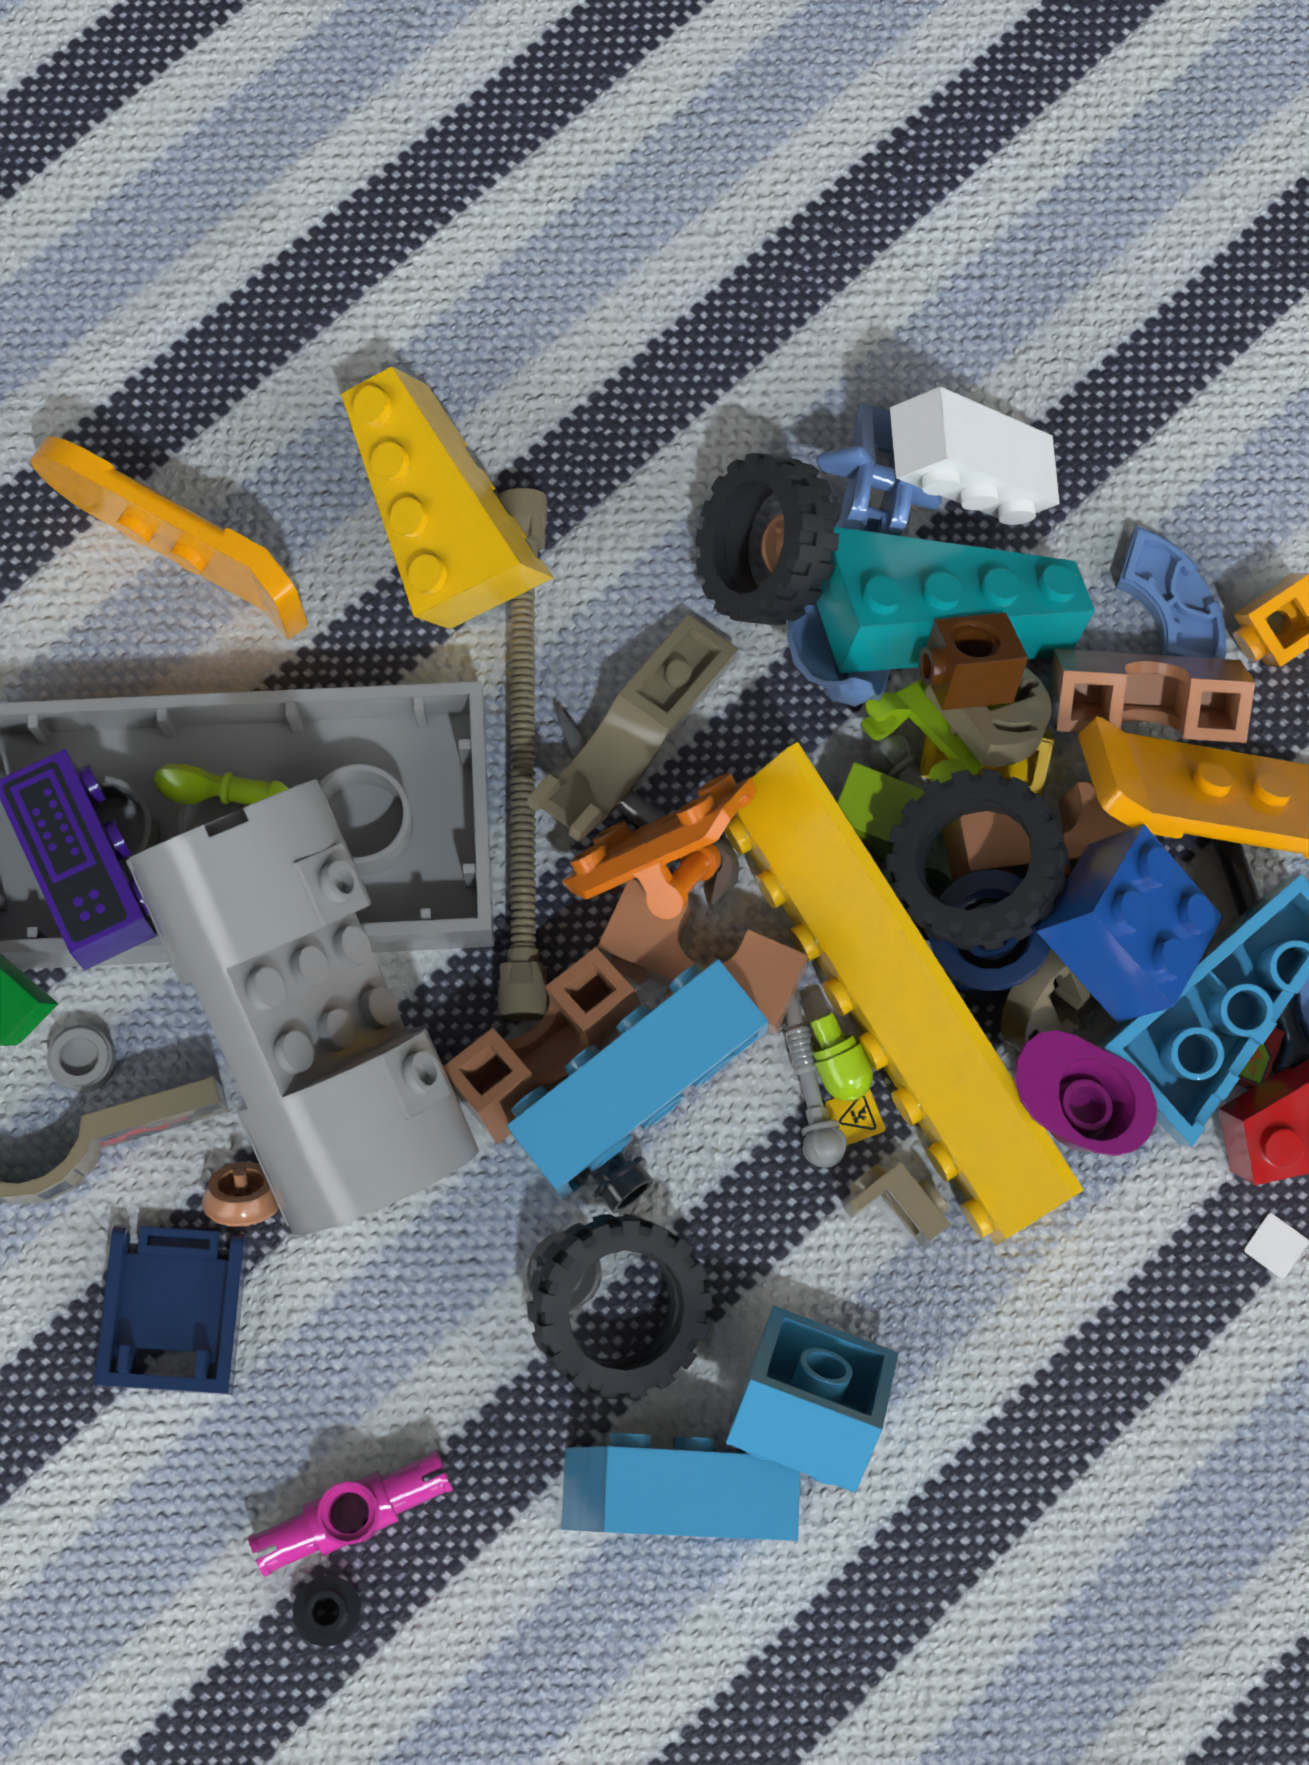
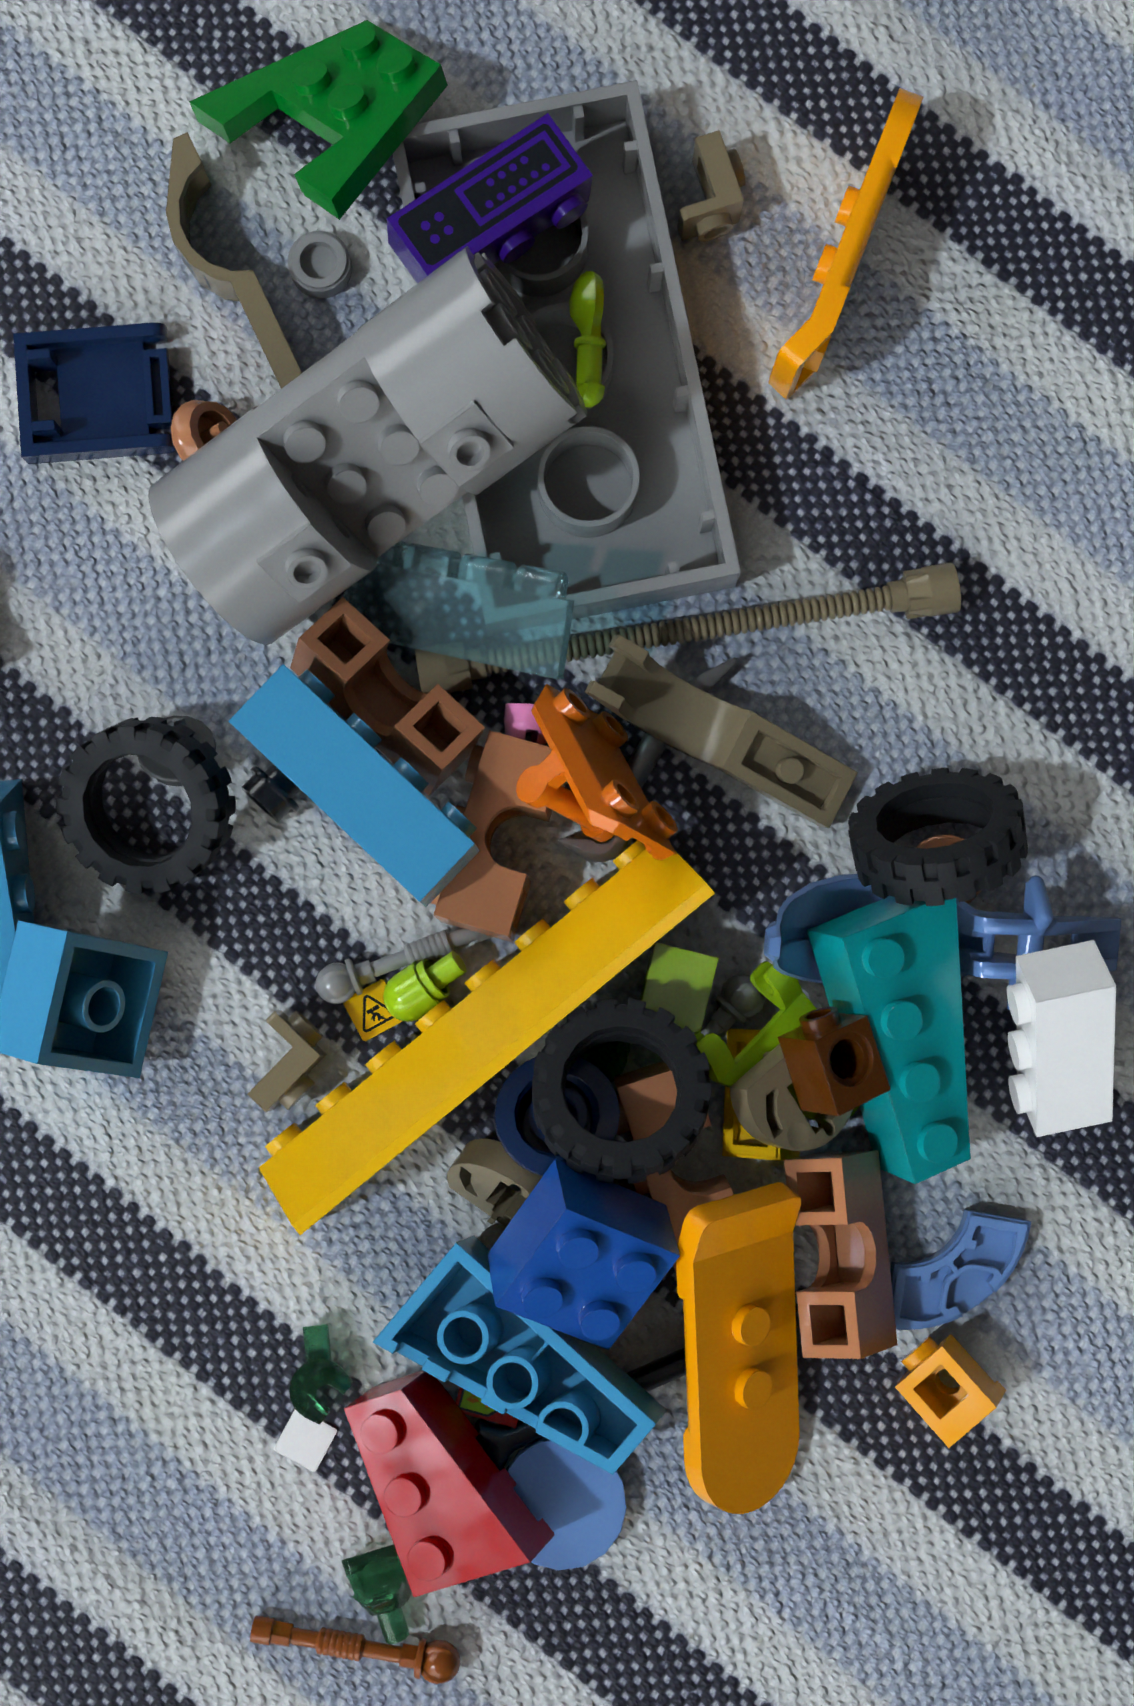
camera: 85 degrees right, 10 degrees up
(82, 650) = (720, 179): none -> dark tan bracket
(438, 508) = (929, 497): yellow wedge -> none
(480, 939) = (469, 607): none -> clear light blue windscreen
(591, 917) = (520, 720): none -> bright pink hinge
(1085, 1094) = (401, 1227): magenta piece -> none
(1214, 1221) = (315, 1372): none -> clear green piece

